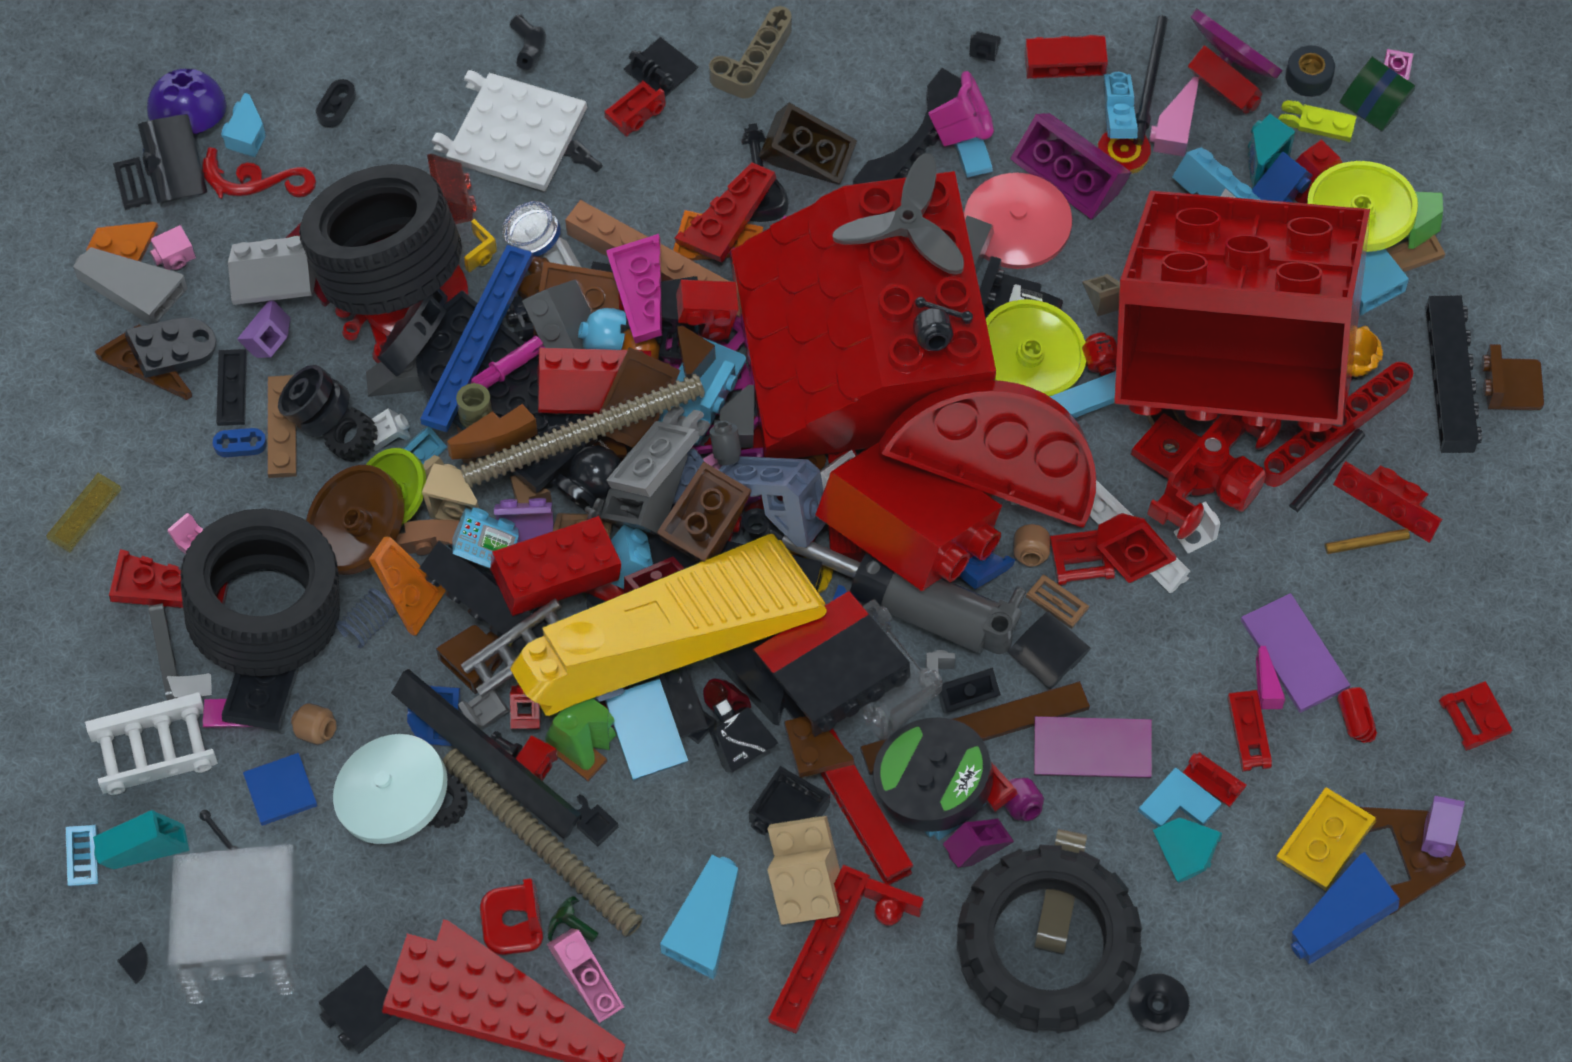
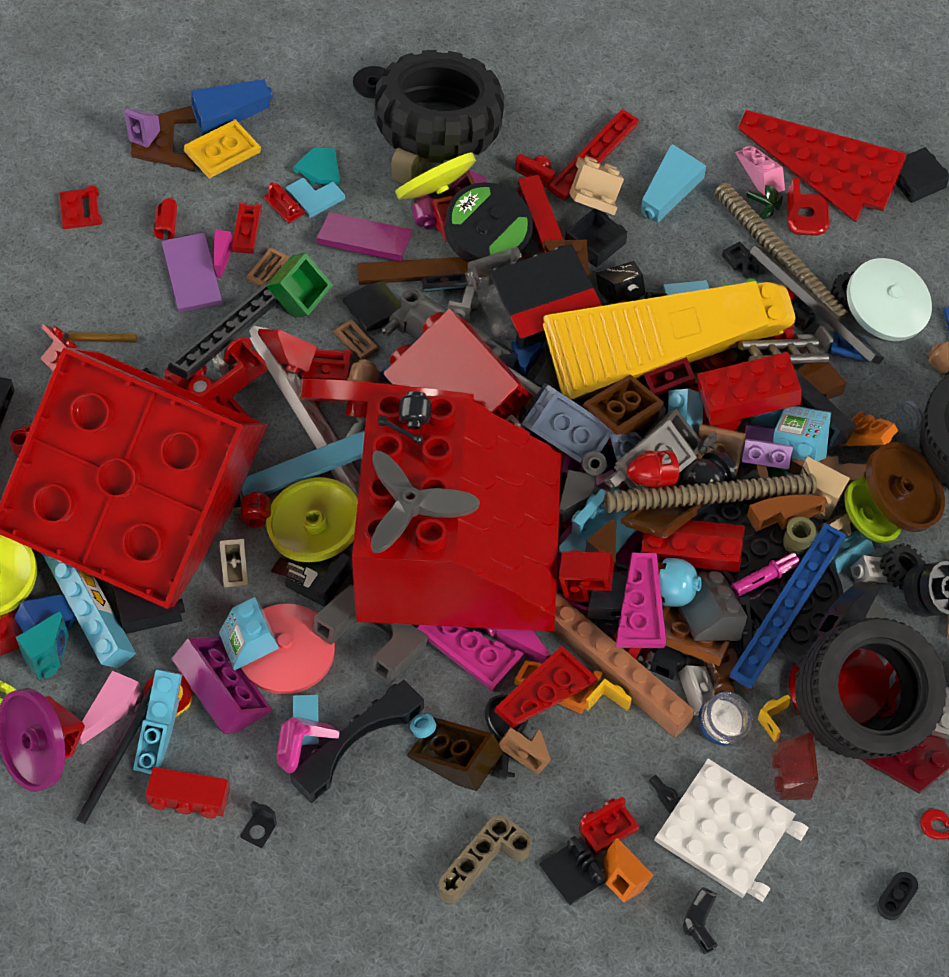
camera: 170 degrees left, 5 degrees down
(610, 63) = (624, 871): none -> orange slope
(655, 420) = (650, 472): none -> red helmet
(666, 237) = (613, 692): none -> yellow bracket
(732, 157) = (529, 753): none -> medium nougat slope
(847, 168) = (422, 725): none -> medium azure tile
(1019, 810) = (437, 178): none -> neon yellow dish
(1056, 206) = (247, 634): none -> medium azure slope
(1148, 634) = (299, 285): none -> green piece
(1196, 701) = (258, 281): none -> medium nougat tile
(1210, 550) = (223, 333): none -> black tile

